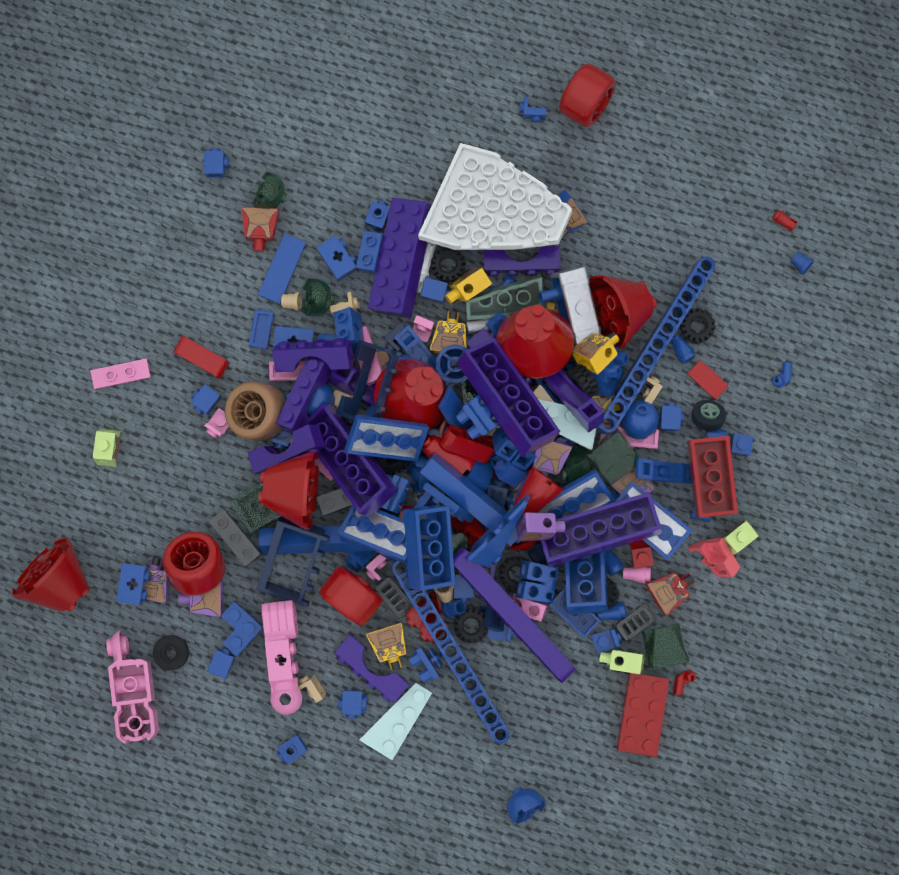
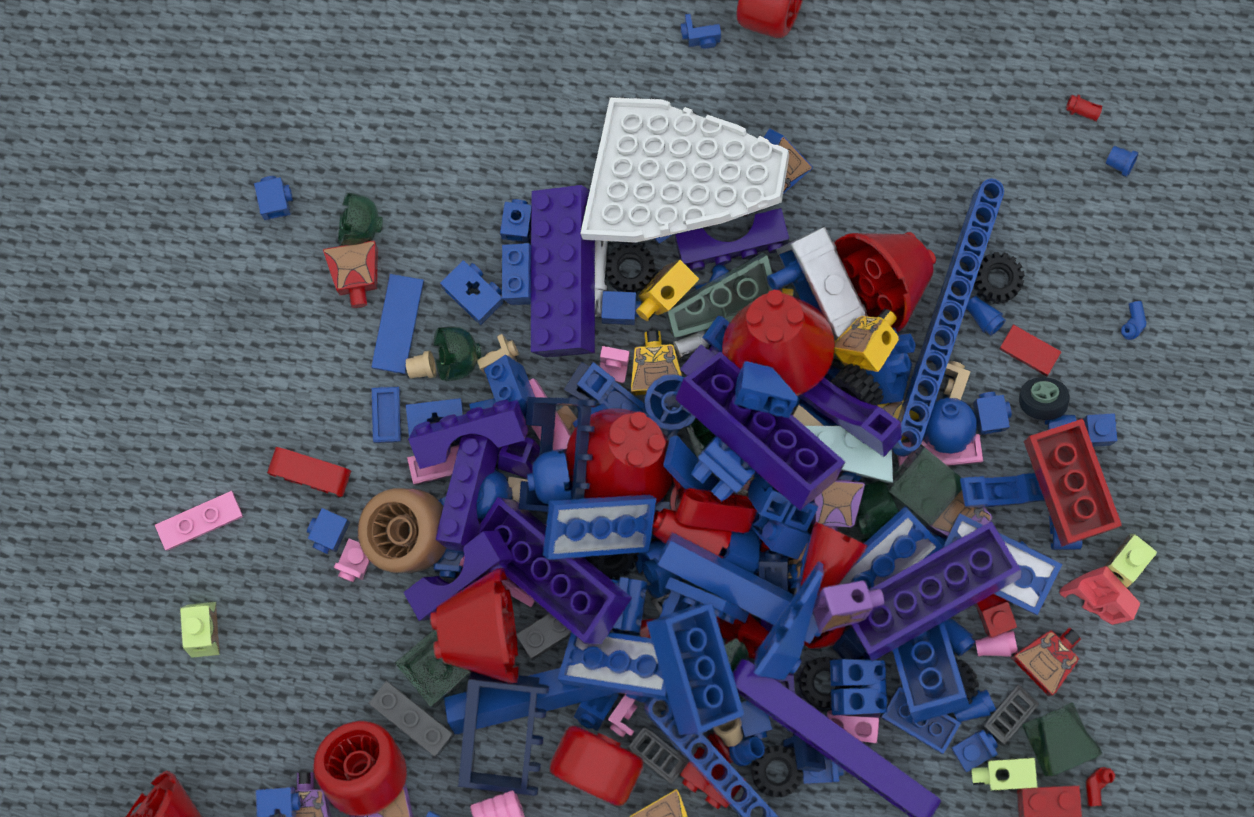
camera: 10 degrees left, 5 degrees down
(361, 398) = (550, 477): none -> blue cylinder
(517, 371) = (764, 390): none -> blue slope

